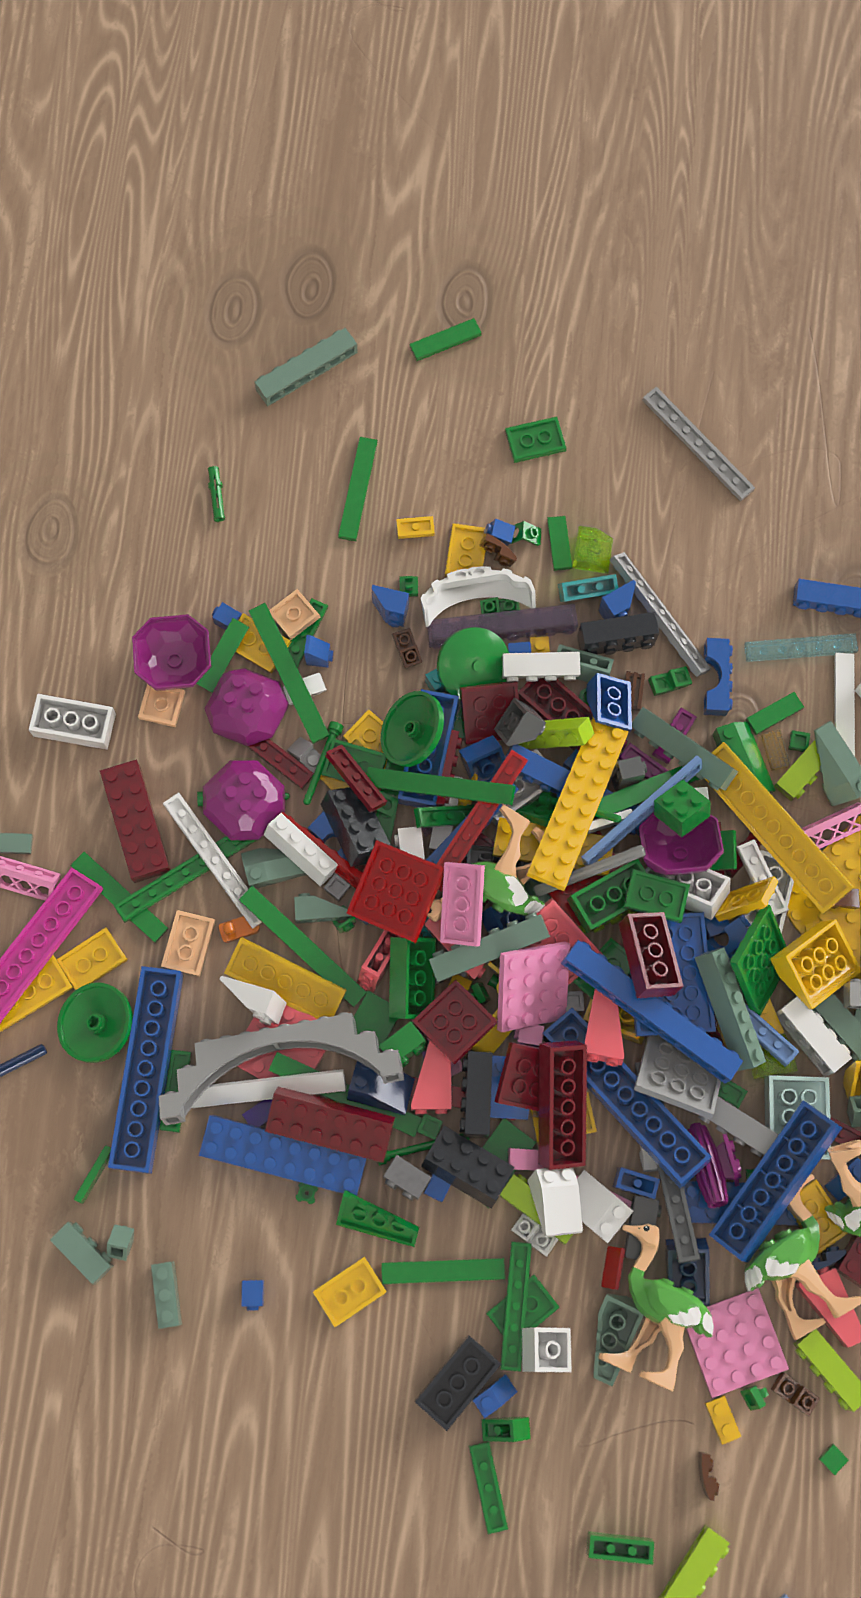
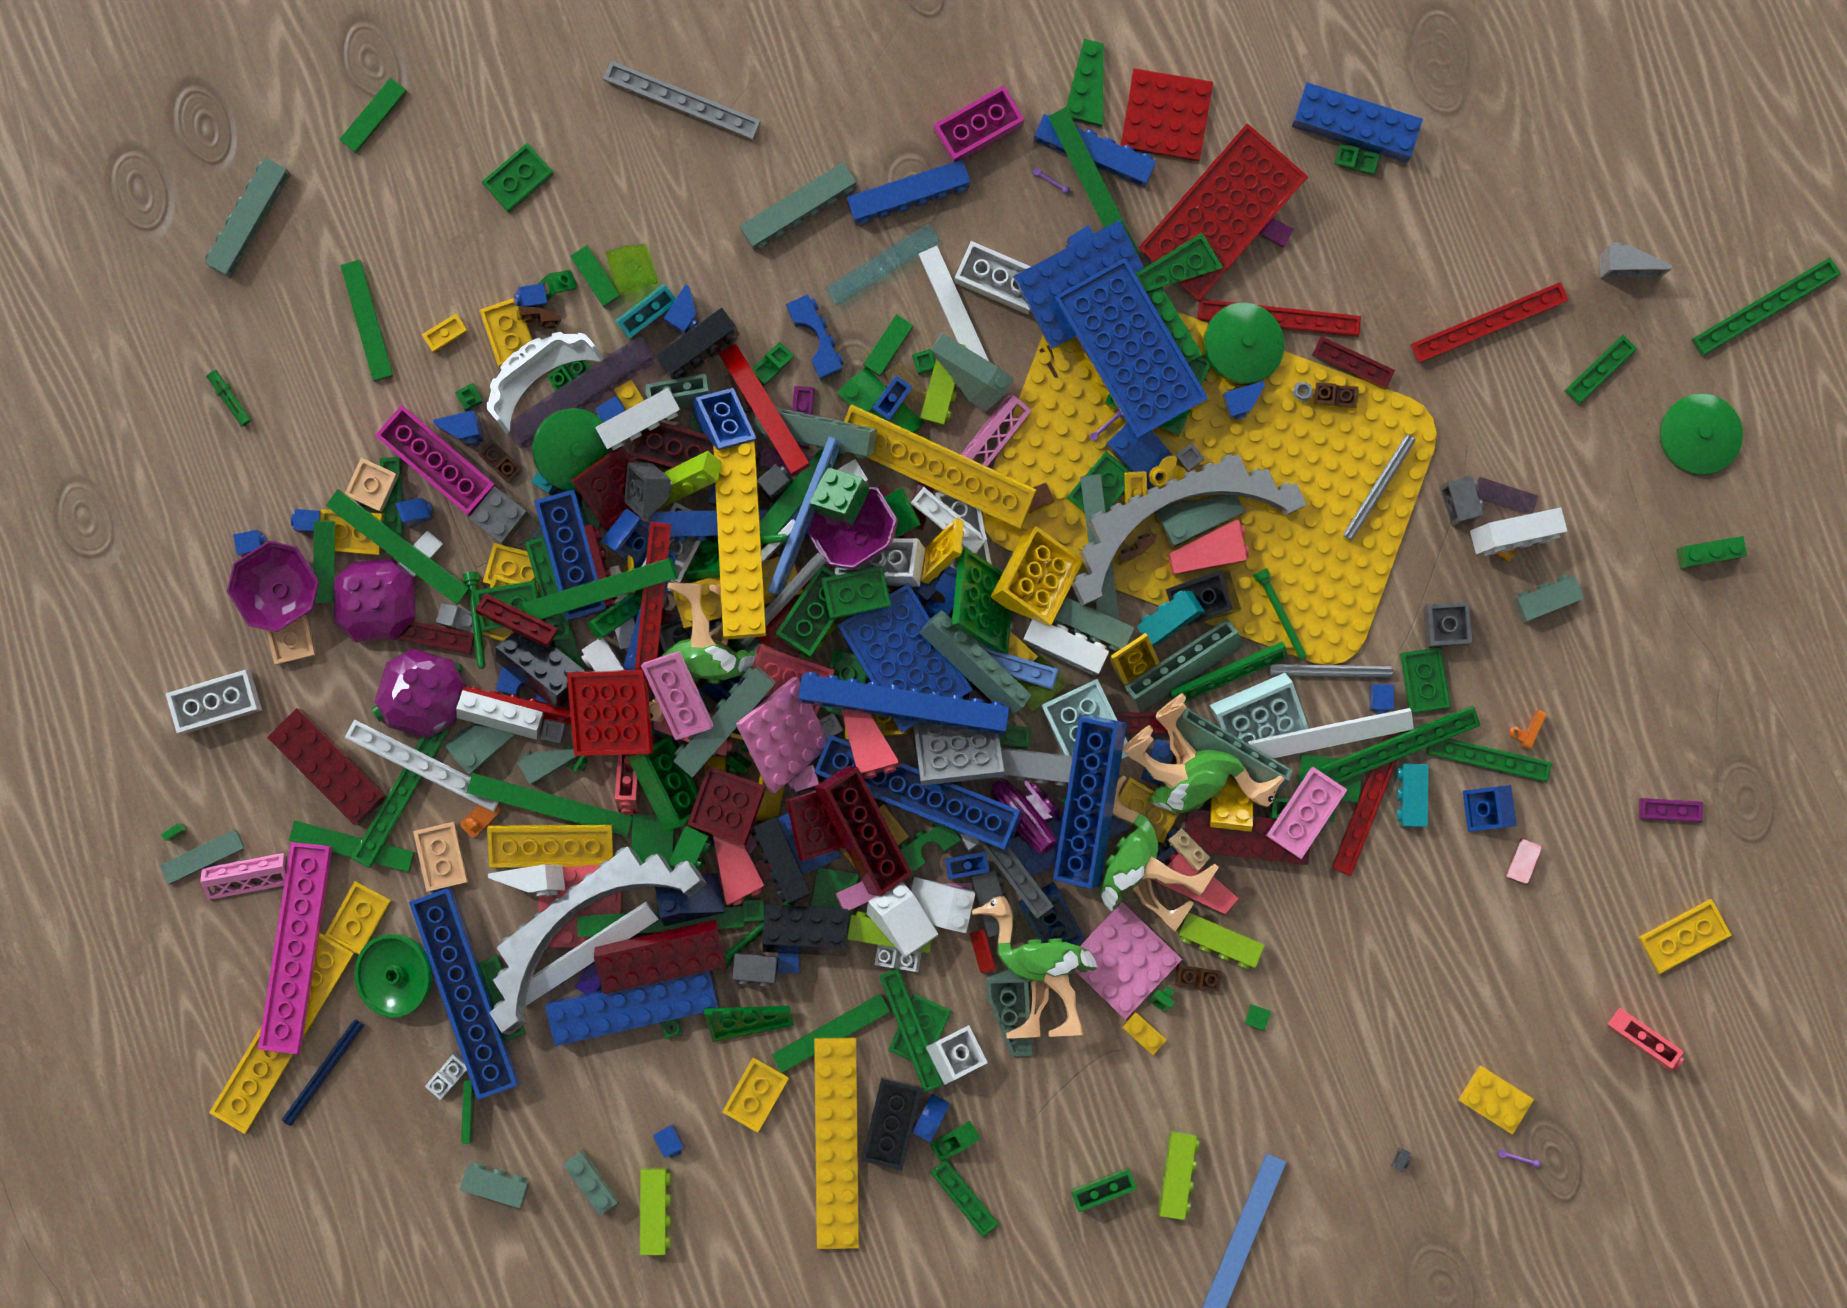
camera: 25 degrees left, 10 degrees up
(92, 1134) = (447, 1076): none -> white slope
(120, 1242) = (524, 1159): sand green brick -> none
(170, 608) = (248, 541): none -> blue brick
(207, 1350) = (653, 1211): none -> lime brick
(356, 622) = (435, 460): none -> dark pink brick
(382, 688) = (499, 516): none -> flat silver brick
(398, 1375) = (836, 1143): none -> yellow plate
(412, 728) = (545, 547): green dish -> none
(624, 1144) = (939, 834): none -> green arch
(649, 711) = (764, 410): none -> red tile
(650, 955) = (876, 653): dark red brick -> none
(664, 619) = (729, 301): light grey plate -> none
(708, 1483) = (1155, 1093): reddish brown slope -> none
(753, 568) = (798, 206): none -> sand green brick
(762, 753) = (892, 397): none -> blue slope
(845, 1275) = (1189, 849): none -> tan hinge

